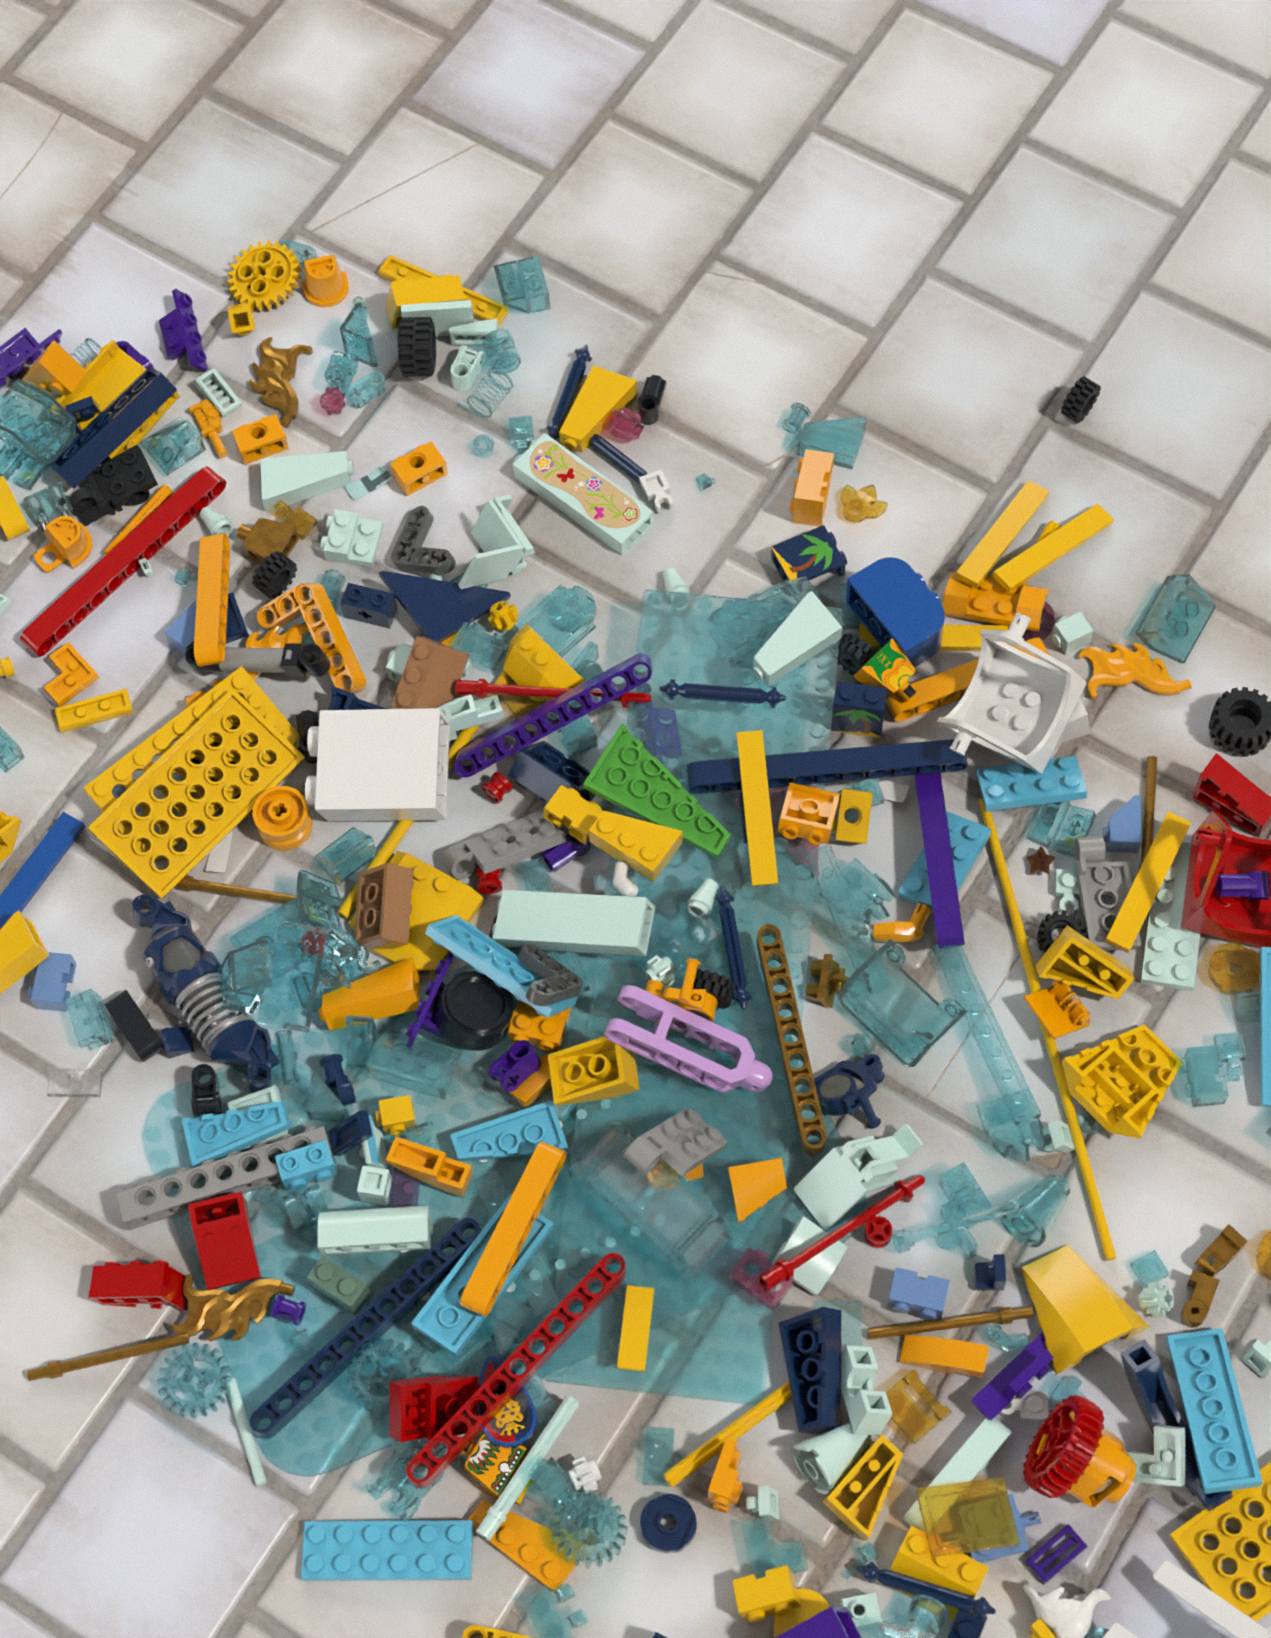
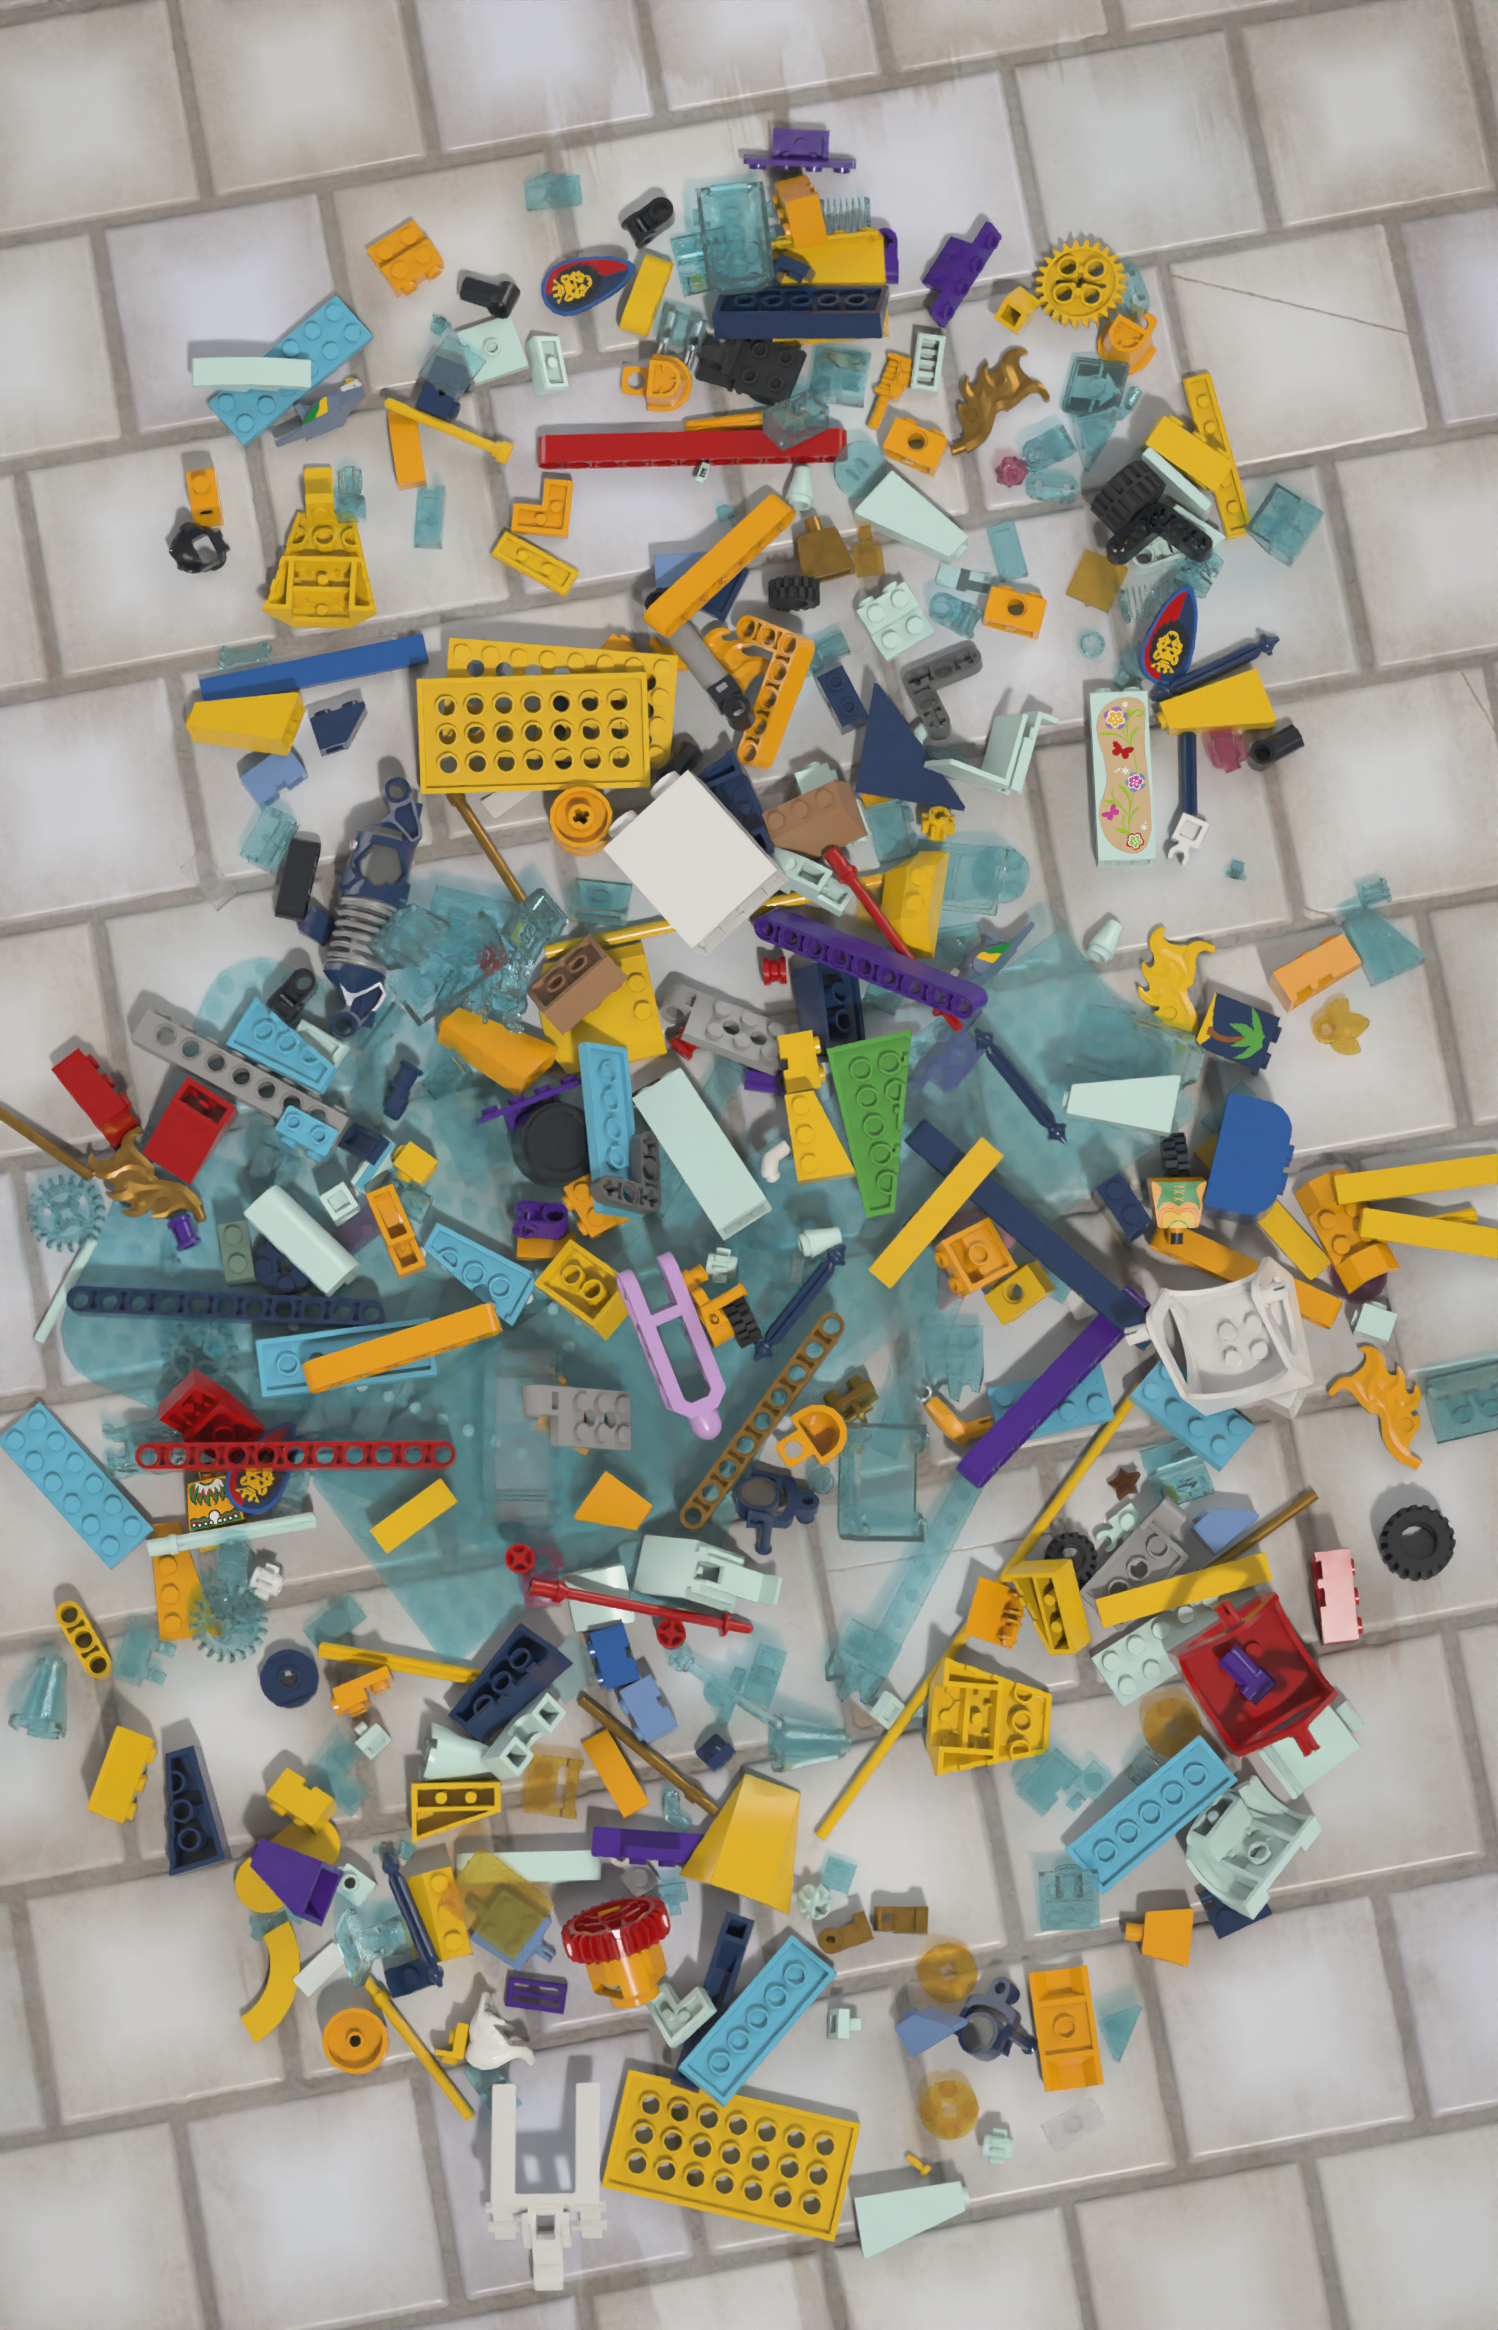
camera: 45 degrees right, 15 degrees up
(64, 916) = (338, 728): none -> dark blue slope
(172, 481) = (795, 419): none -> clear light blue brick
(240, 479) = (859, 469): none -> clear light blue piece
(328, 315) = (1094, 385): none -> clear light blue tile
(377, 444) = (1007, 551): none -> clear light blue tile
(378, 1279) = (271, 1279): none -> dark blue plate
(384, 501) = (957, 614): none -> clear light blue piece
(447, 413) = (1096, 581): none -> clear yellow piece
(482, 333) = (1160, 527): none -> black beam
(526, 397) = (1170, 638): none -> shield
(615, 650) = (989, 957): none -> sand blue animal
(735, 569) = (1170, 979): none -> yellow piece
(737, 1269) = (517, 1555): none -> red wheel
(831, 1015) = (819, 1432): none -> light orange container
(860, 1285) = (609, 1649): none -> blue brick

